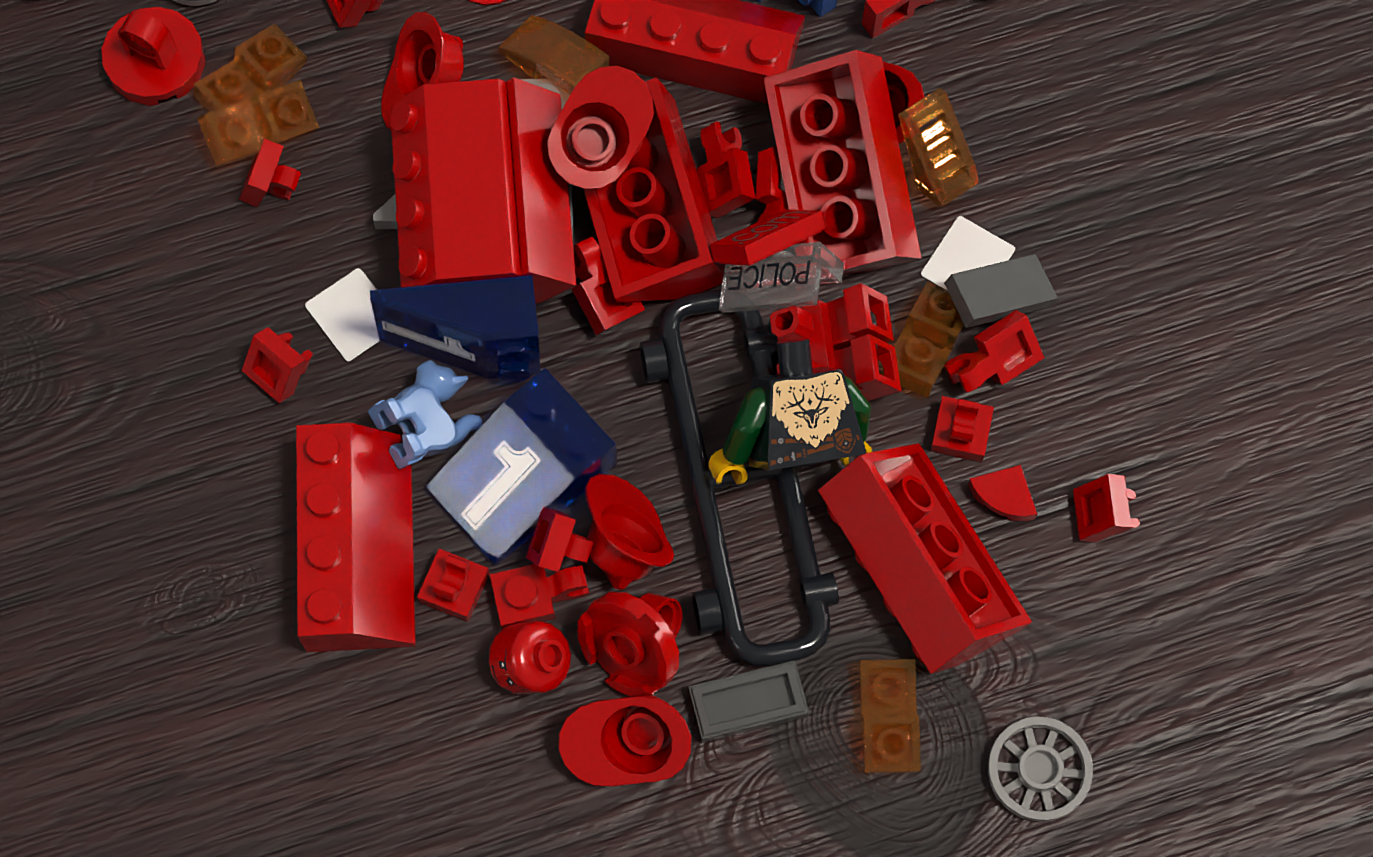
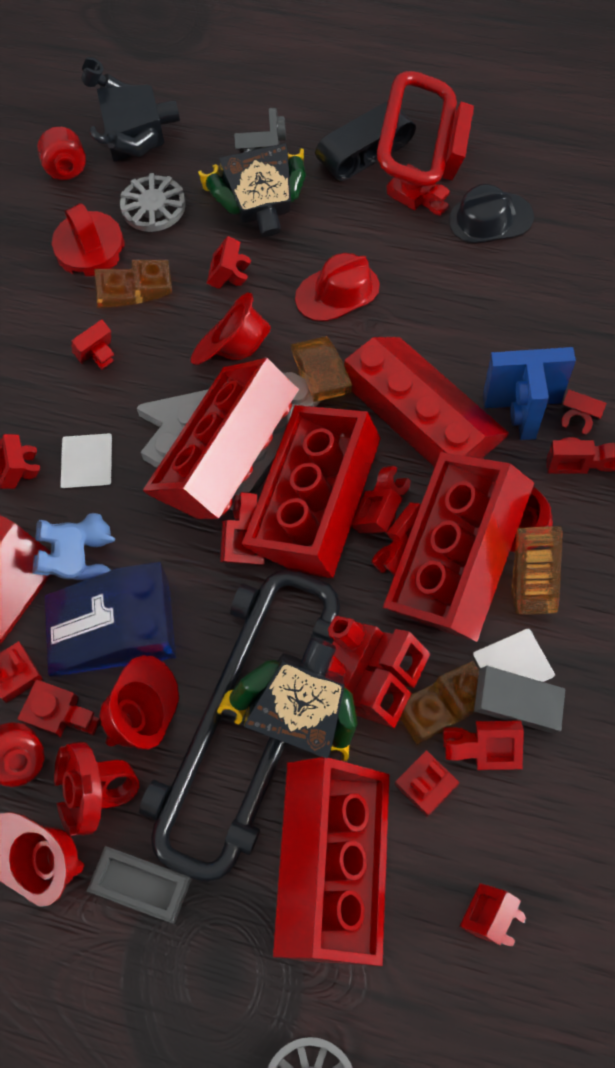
camera: 40 degrees right, 5 degrees down
(268, 115) = (119, 311): clear orange slope -> none
(454, 183) = (180, 411): red slope -> none
(467, 324) = (146, 509): clear blue slope -> none
(555, 540) = (84, 684): red tile -> none
(600, 127) = (300, 420): red piece -> none
(767, 237) = (367, 561): red tile -> none
(781, 279) = (360, 593): clear panel -> none
(889, 715) = (227, 966): clear orange slope -> none
(1005, 493) = (426, 853): red tile -> none

